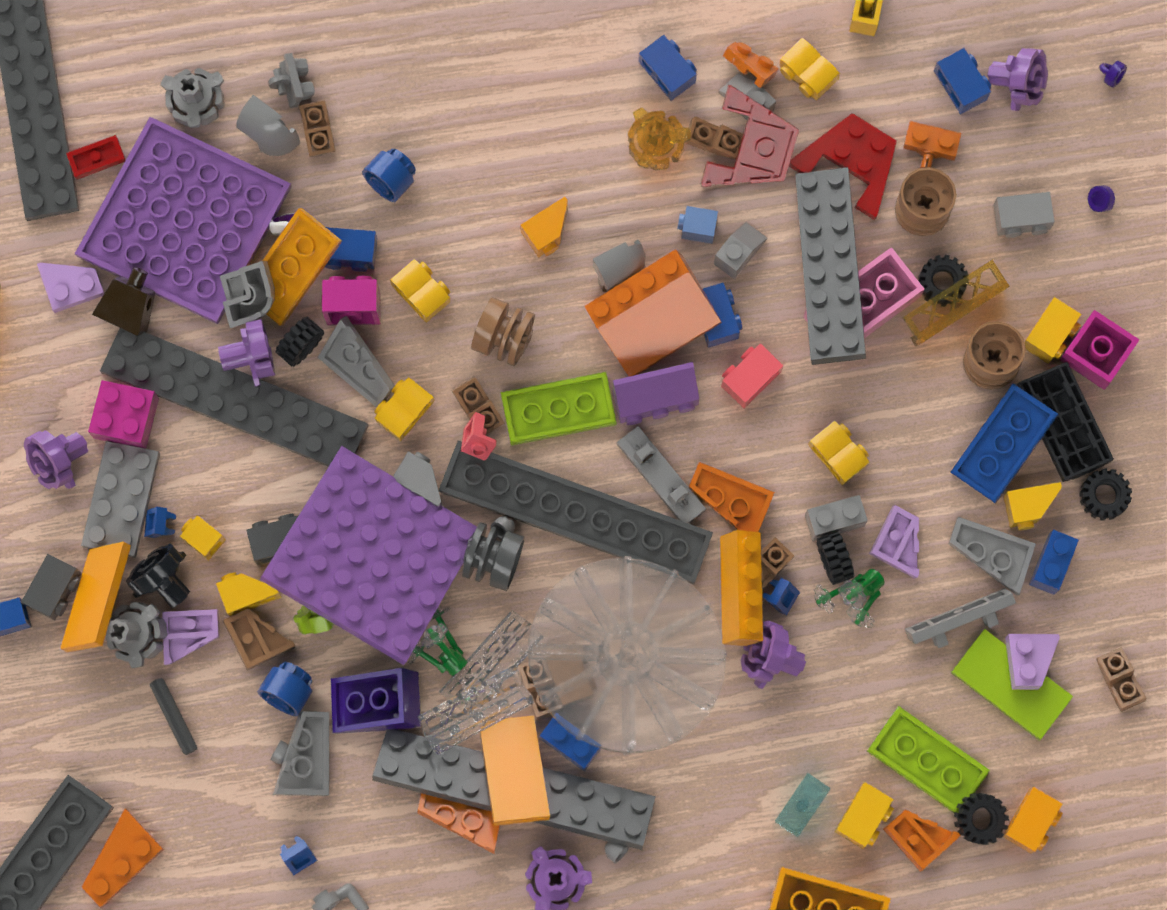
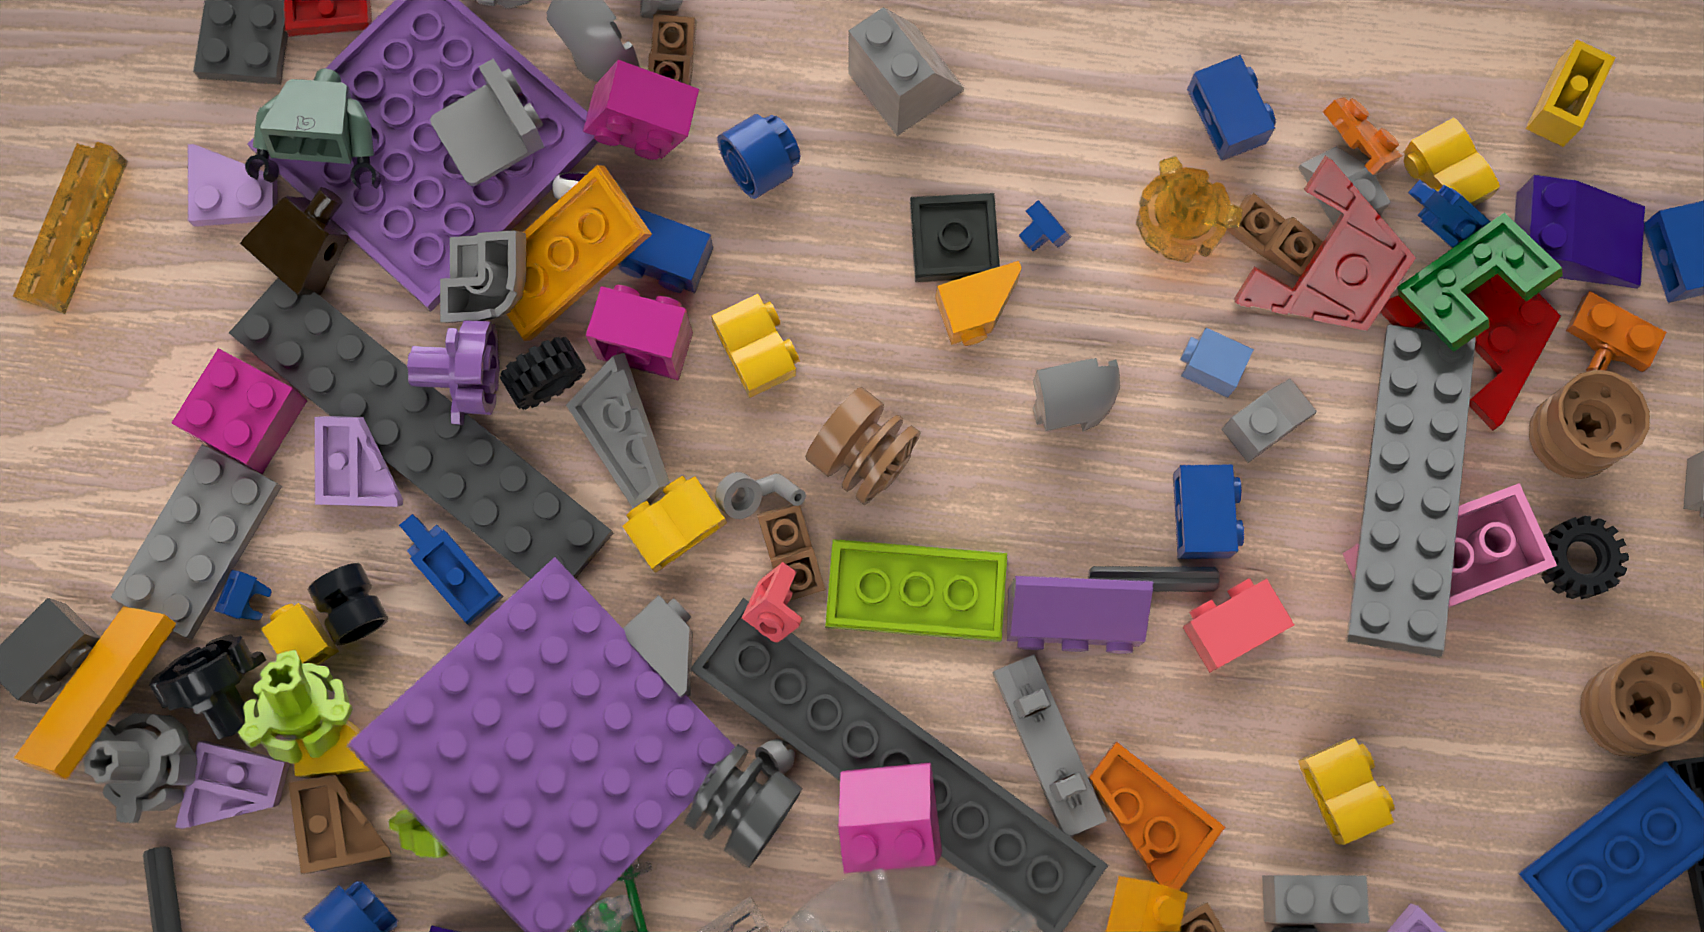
camera: 15 degrees right, 0 degrees up
(53, 457) = (107, 446): medium lavender piece -> none
(116, 230) = (313, 123): none -> sand green torso
(200, 428) = (351, 465): none -> lavender wing
(216, 572) = (291, 704): none -> lime piece
(222, 202) = (488, 127): none -> light grey bracket
(232, 515) = (347, 619): none -> black wheel
(267, 537) = (397, 667): dark grey brick -> none
(278, 473) = (450, 570): none -> blue hinge
(311, 168) = (640, 110): none -> dark pink brick
(443, 378) = (751, 491): none -> light grey plate
(460, 99) = (898, 70): none -> light grey slope
(521, 191) = (953, 236): none -> pearl dark grey tile
(574, 172) = (1043, 228): none -> blue tile
(578, 539) = (888, 818): none -> dark pink slope
(653, 313) = (1108, 483): orange slope -> none
(705, 359) = (1163, 578): none -> dark grey axle
(817, 101) = (1447, 213): none -> blue hinge
(843, 113) = (1441, 287): none -> green plate
(895, 87) = (1584, 229): none -> dark purple slope
(962, 310) = (1598, 613): clear yellow fence -> none

